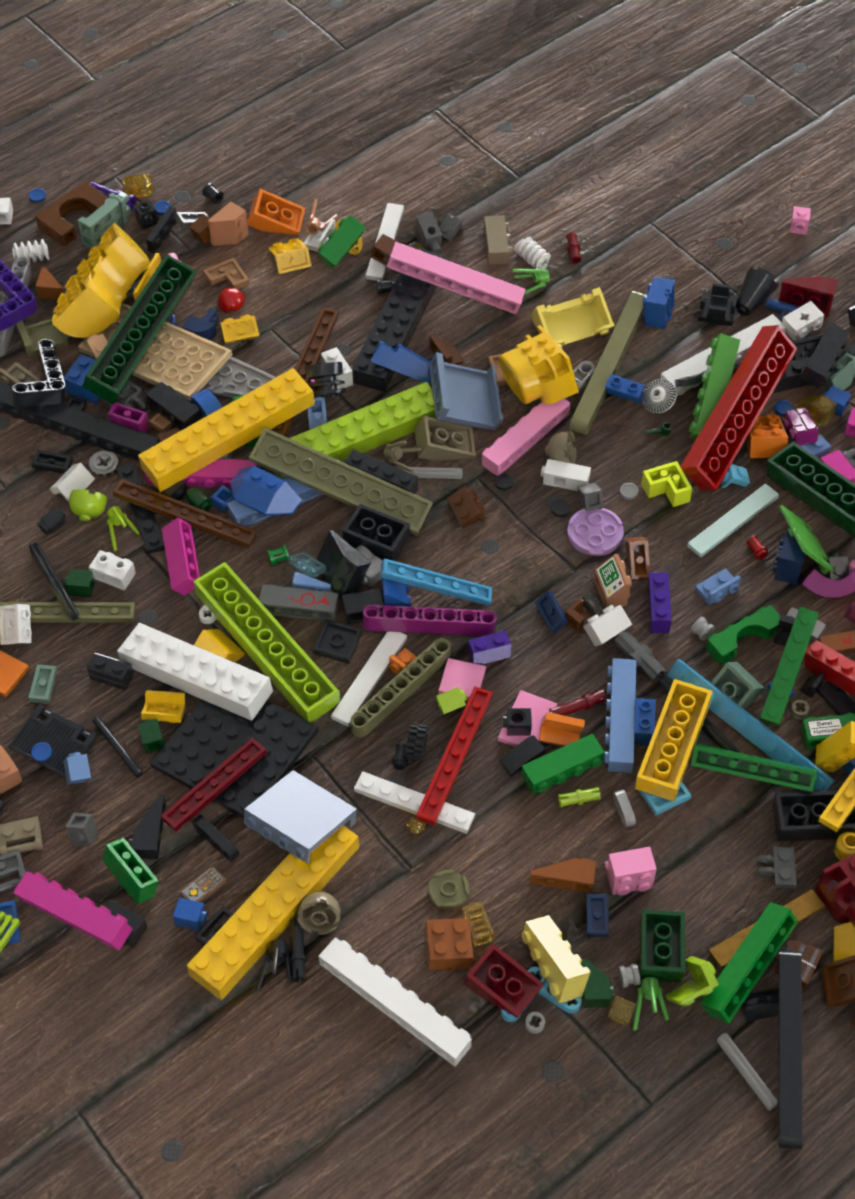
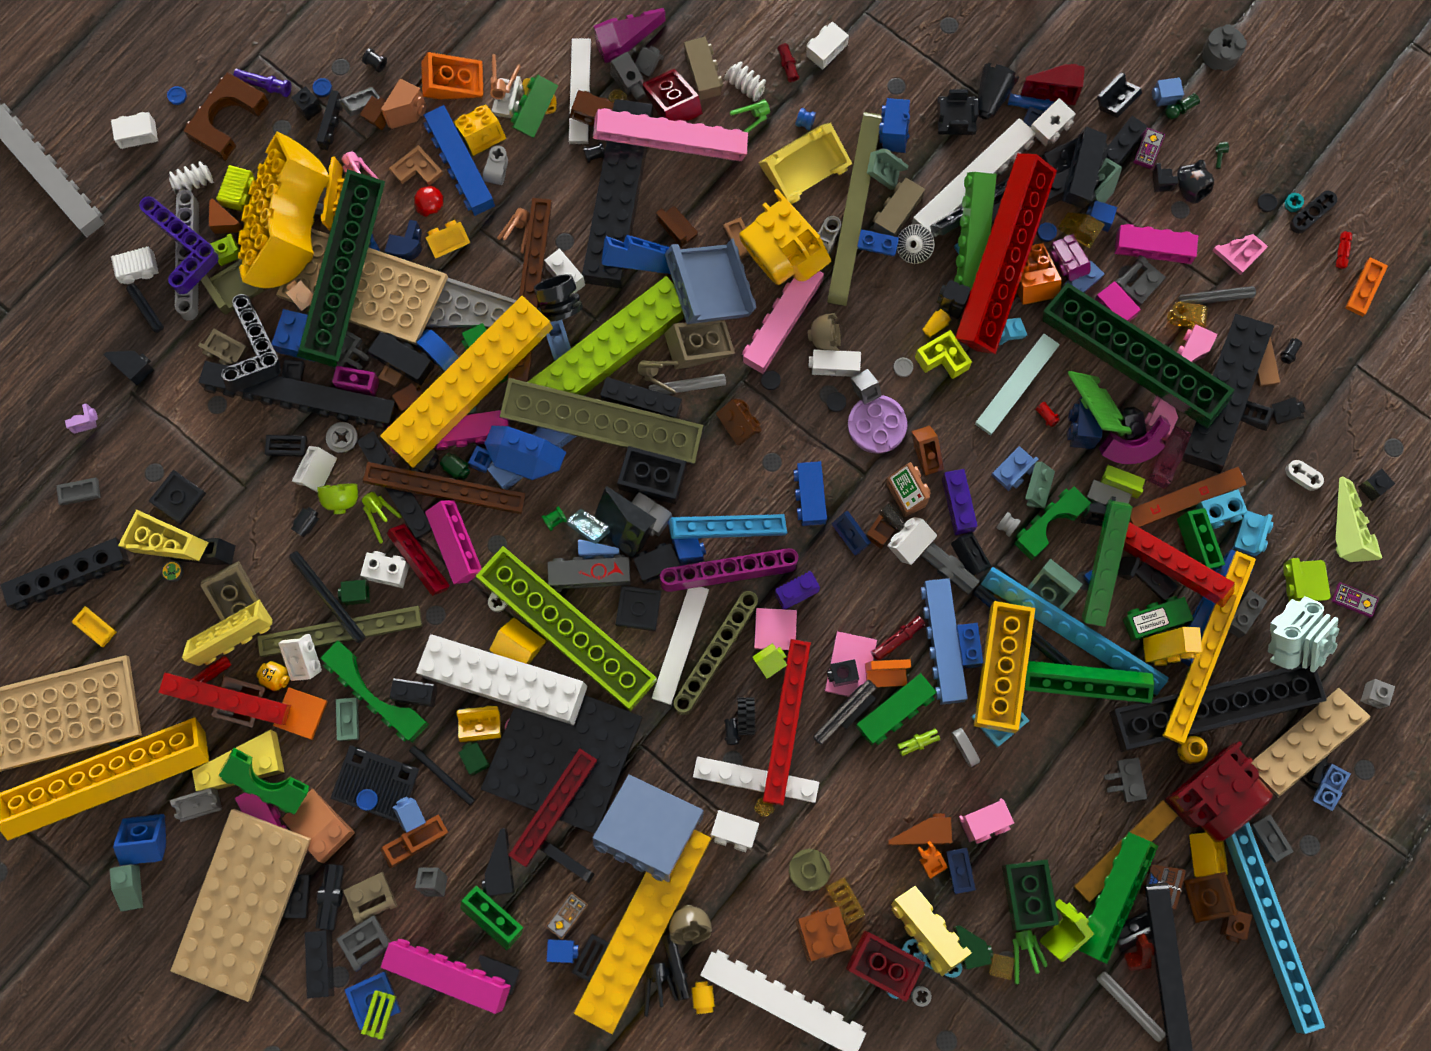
camera: 10 degrees left, 20 degrees up
(45, 308) = (226, 249): none -> lime brick
(66, 264) = (235, 188): none -> neon yellow brick
(74, 795) = (413, 841): none -> dark orange slope
(95, 692) = (345, 664): none -> green arch
(102, 219) = (264, 122): sand green hips -> none
(136, 185) = (288, 64): clear yellow piece -> none
(145, 567) = (418, 559): none -> dark red plate
(265, 274) = (459, 160): none -> blue brick
(297, 282) = (496, 166): none -> light grey piece
(305, 325) = (518, 220): none -> nougat plant
(317, 981) = (703, 997): none -> yellow brick
(382, 835) = (734, 830): none -> white brick
(401, 661) = (711, 621): orange bracket -> none
(439, 201) = (620, 36): none -> magenta wedge
(467, 254) = (673, 97): none -> dark red slope
(512, 754) = (844, 711): none -> black axle
(519, 574) = (810, 493): none -> blue brick
(571, 900) = (932, 860): none -> orange plate
(579, 288) = (805, 119): none -> blue wheel
(611, 239) = (826, 45): none -> white brick
(629, 975) = (1002, 930): light grey wheel -> none
(644, 332) = (885, 167): none -> sand green bracket
(651, 365) = (898, 208): none -> dark tan brick
(662, 648) = (971, 554): none -> black slope
(663, 430) = (924, 284): dark green hand -> none
(668, 456) = (937, 322): none -> yellow cone
(684, 438) = (953, 298): none -> black brick
(737, 599) = (1039, 485): none -> sand green bracket
(770, 1017) = (1142, 958): none -> clear red bracket
(800, 704) = (1126, 598): dark tan bush -> none
(826, 614) = (1123, 480): none -> lime panel

